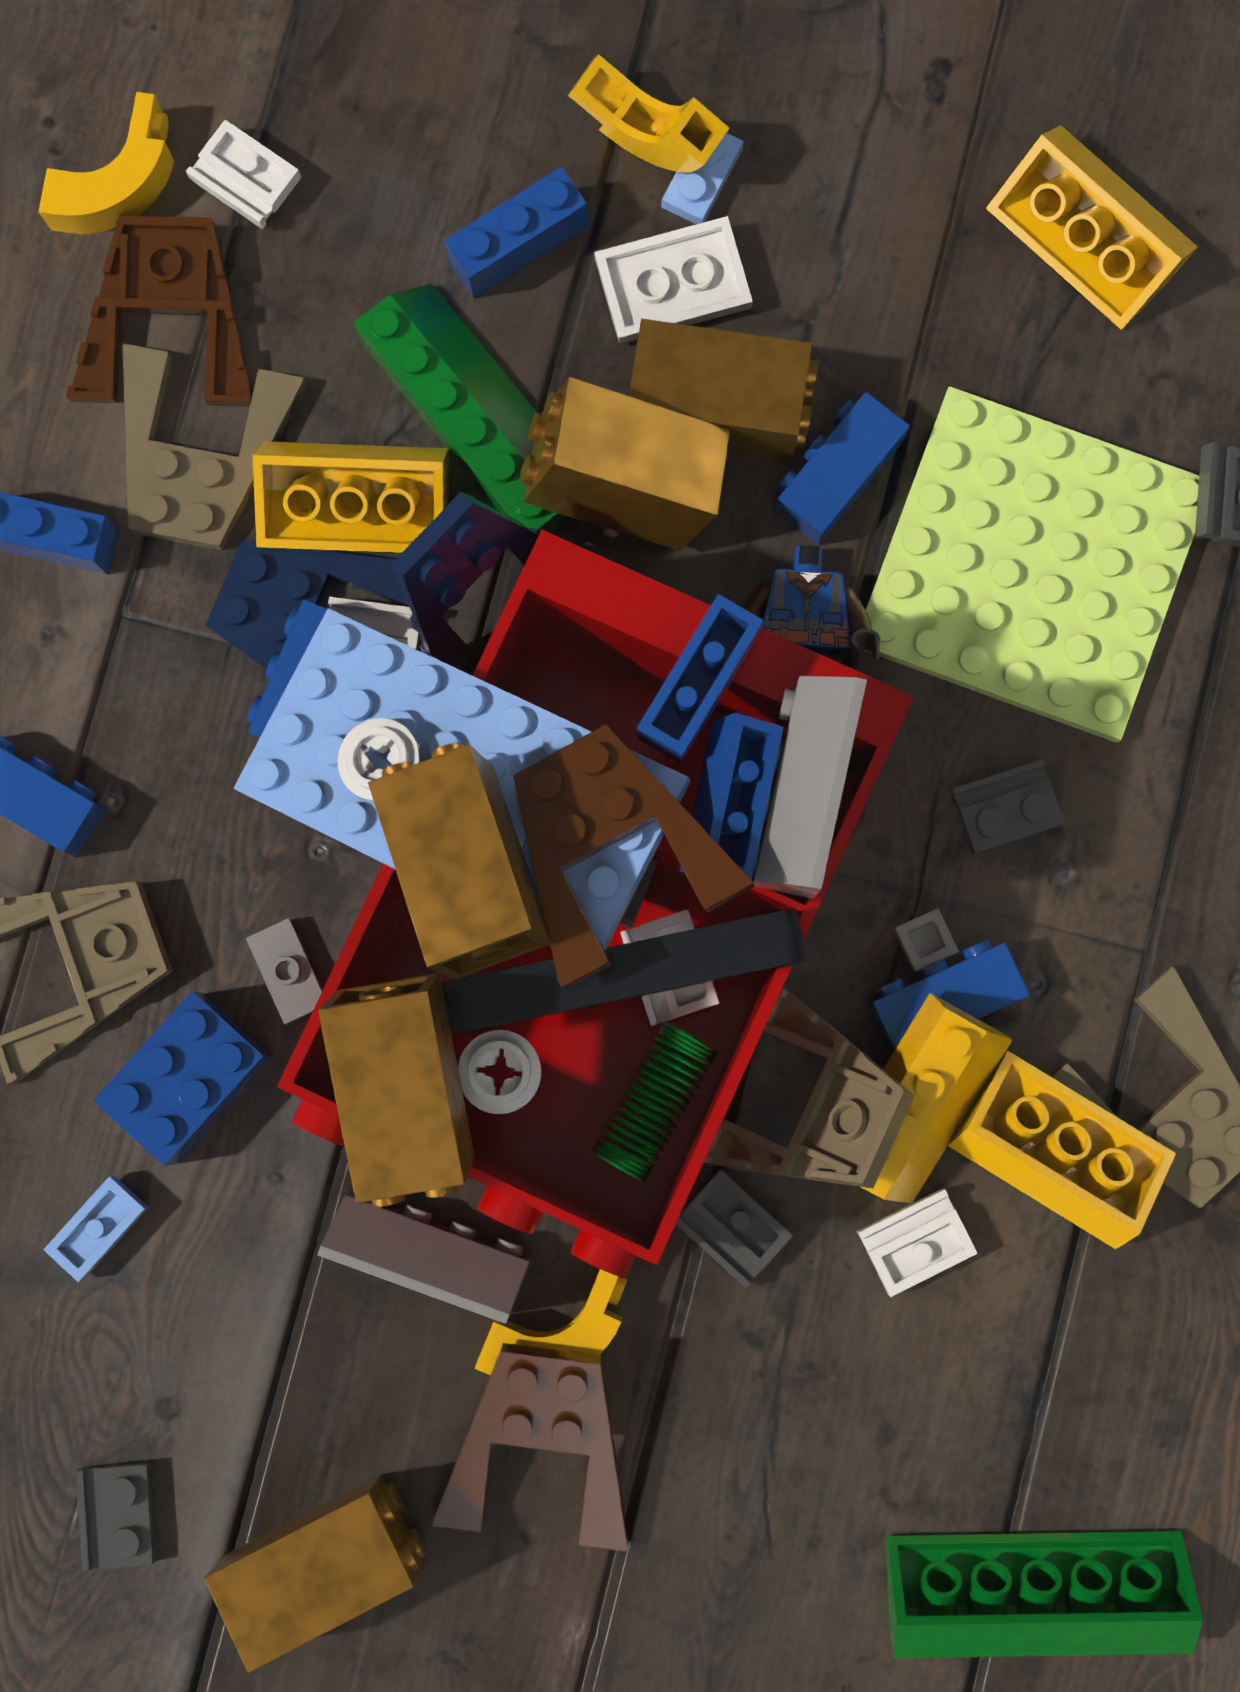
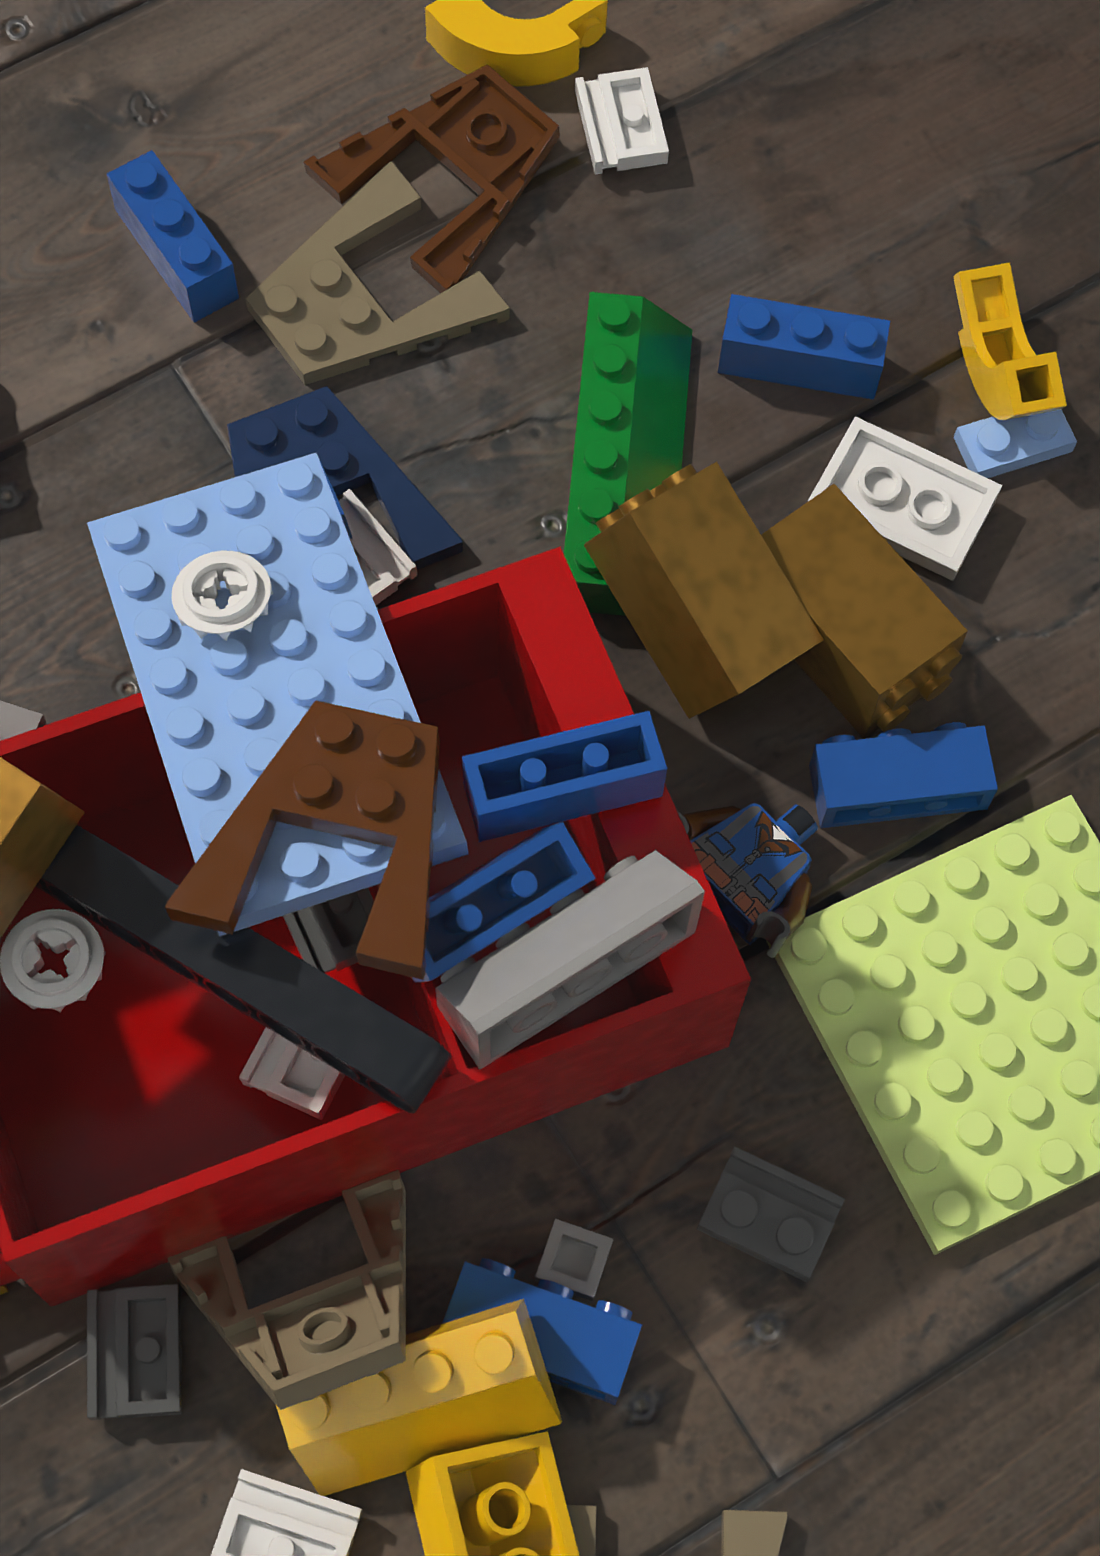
camera: 35 degrees right, 15 degrees down
(346, 495) = (450, 429): yellow slope -> none
(447, 561) = (462, 518): dark blue wing -> none
(459, 861) = (188, 719): pearl gold brick -> none
(673, 1042) = (251, 1130): green piece -> none

